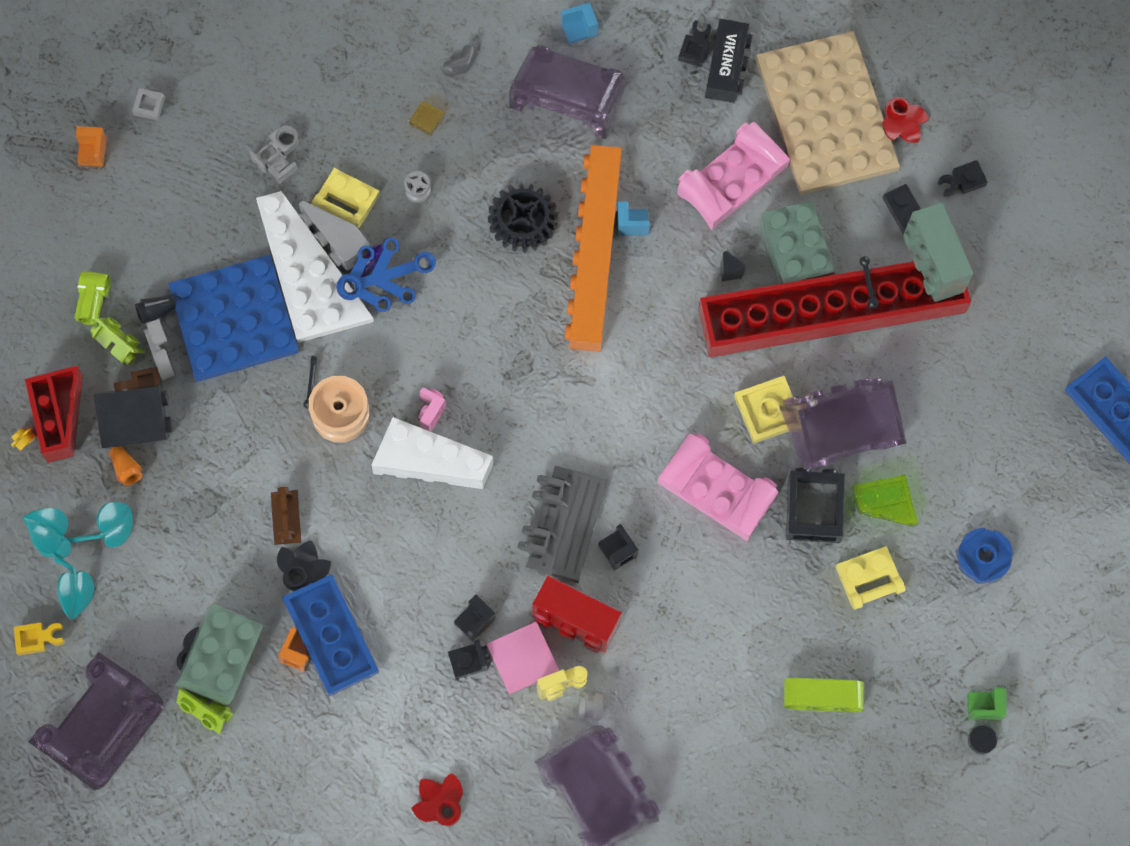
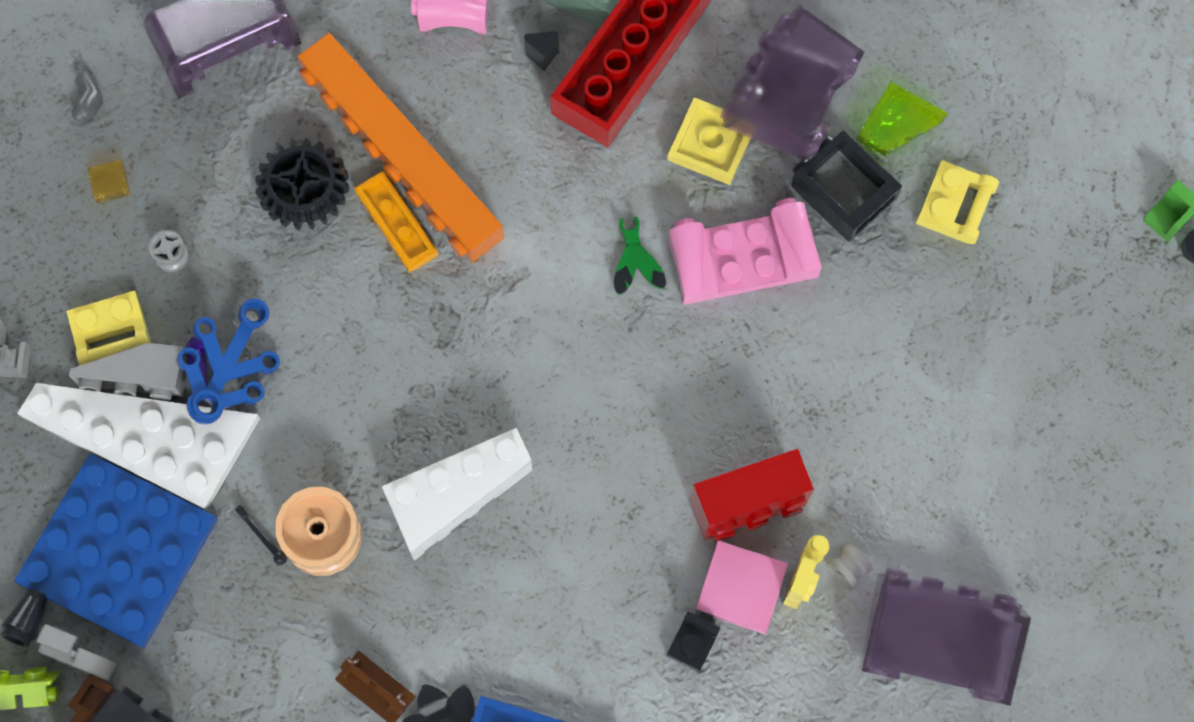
camera: 45 degrees left, 0 degrees up
(430, 414) = (410, 449): bright pink bracket -> none
(475, 618) = (657, 596): black panel -> none
(551, 286) = (396, 221): none -> light orange tile
(567, 526) = (645, 421): dark grey hinge -> none
(618, 548) = (715, 396): black panel -> none
(631, 221) = (408, 91): dark azure panel -> none
(658, 431) = (635, 257): none -> green piece
(823, 695) = (1034, 343): lime beam -> none
(979, 569) = (1026, 104): blue plate -> none

